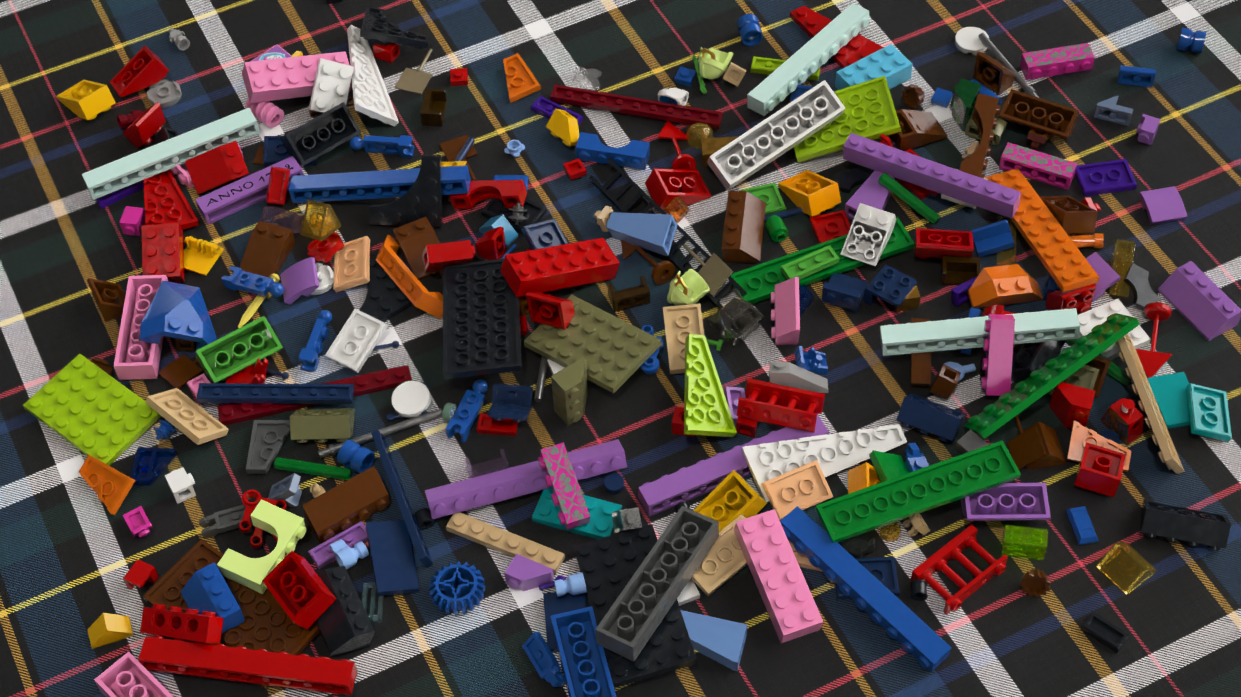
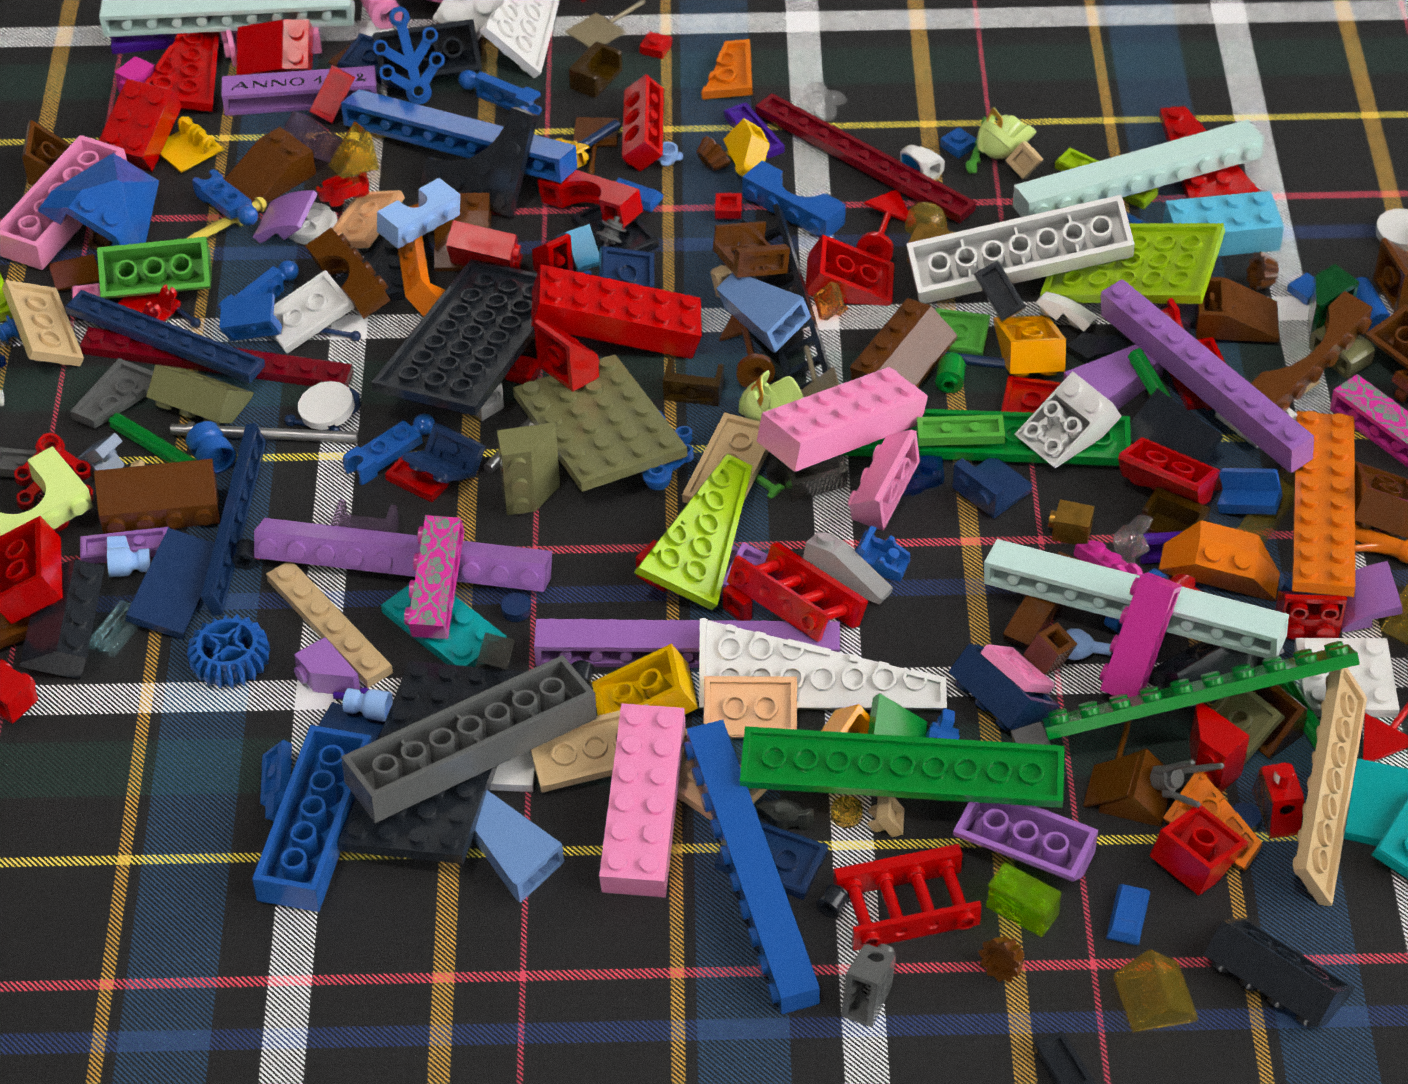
camera: 25 degrees right, 5 degrees down
(316, 143) = (410, 59): none -> blue plant
(324, 358) = (249, 317): none -> blue panel
(351, 295) = (334, 255): none -> reddish brown arch
(392, 259) = (404, 224): none -> light blue arch
(448, 411) = (362, 436): sand green tile -> none
(489, 133) = (643, 123): none -> red brick
(544, 138) = (712, 154): none -> reddish brown piece
(624, 198) = (751, 251): none -> reddish brown panel
(744, 285) = (841, 418): none -> bright pink brick
(749, 29) = (1084, 111): blue wheel -> none
(779, 166) = (999, 291): none -> black tile
(813, 162) = (1055, 305): none -> white slope
(889, 286) = (1053, 499): dark blue bracket -> none
(928, 215) = (1174, 427): none -> black tile
(936, 401) = (1018, 669): none -> bright pink tile
(938, 313) = (1097, 553): none -> dark pink hinge
(948, 296) = (1130, 539): none -> clear plate
(974, 622) = (871, 967): none -> dark grey torso
(1061, 433) = (1171, 777): none -> dark grey plant

